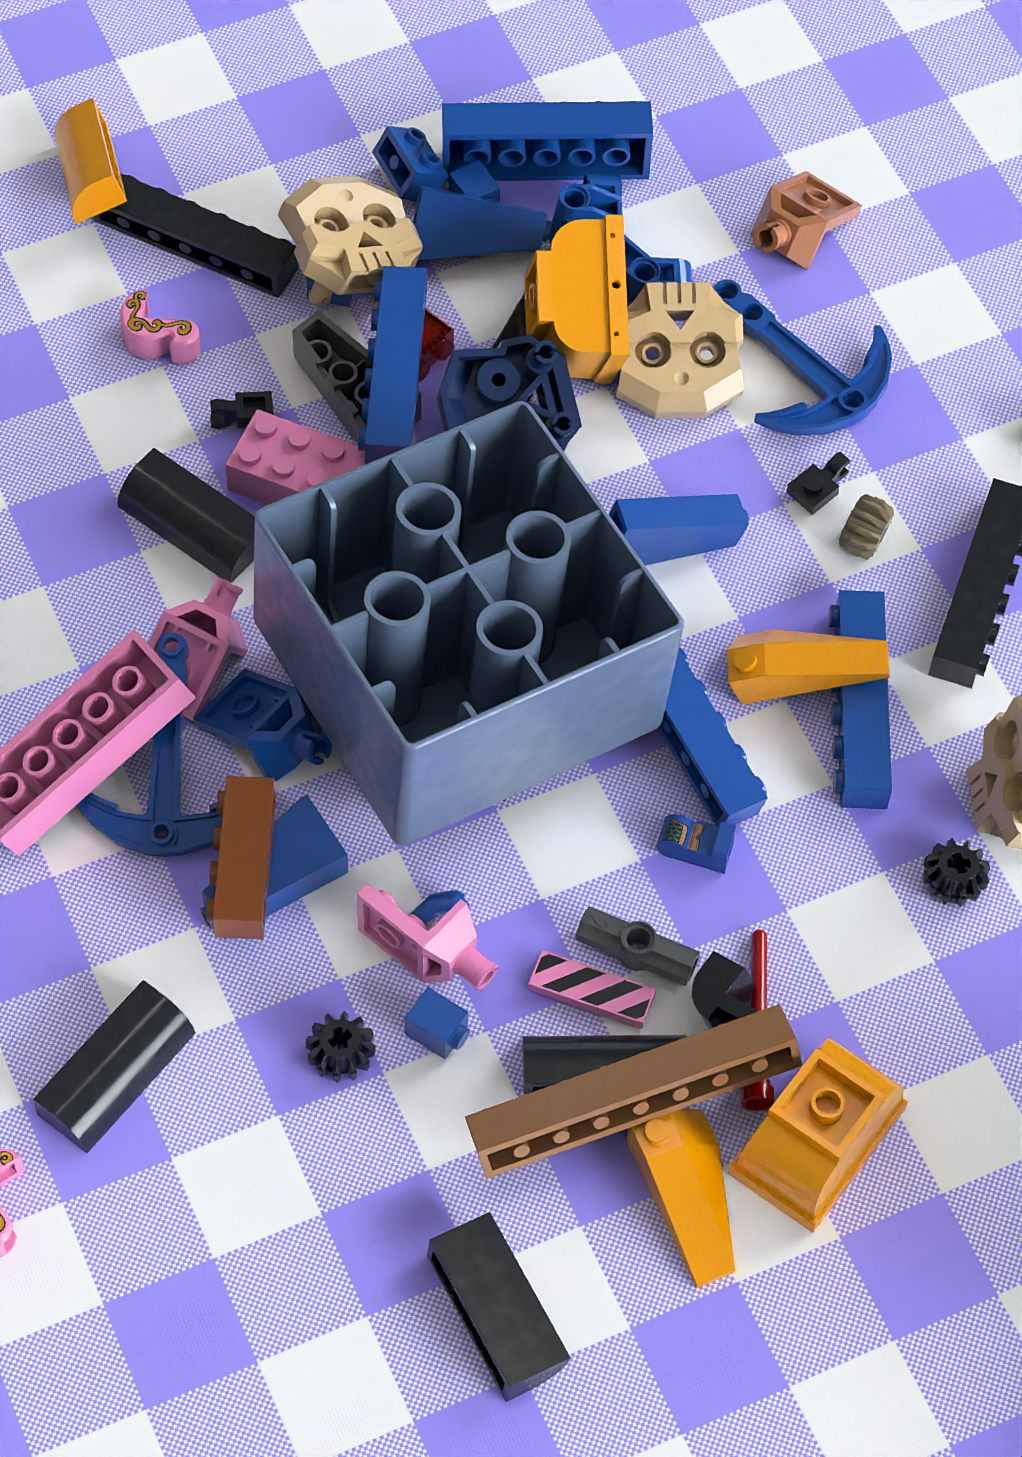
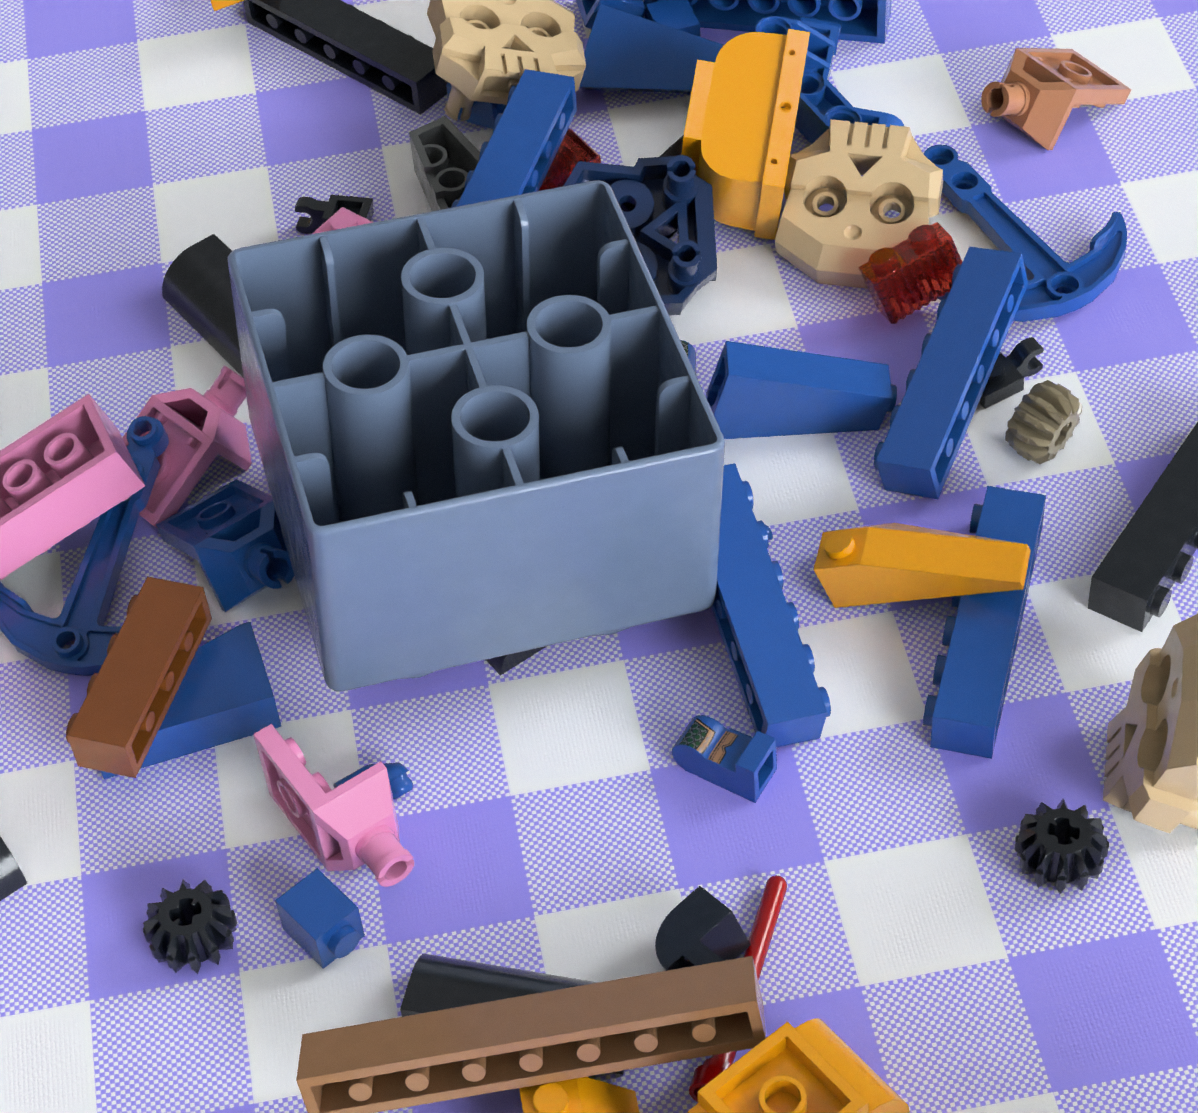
camera: 20 degrees right, 10 degrees down
(157, 336) = (264, 132): bright pink animal -> none
(592, 989) = (537, 914): bright pink tile -> none
(614, 936) = (586, 851): dark grey piece -> none
(736, 407) = (911, 272): none -> clear red brick
(788, 493) = (951, 373): none -> blue brick

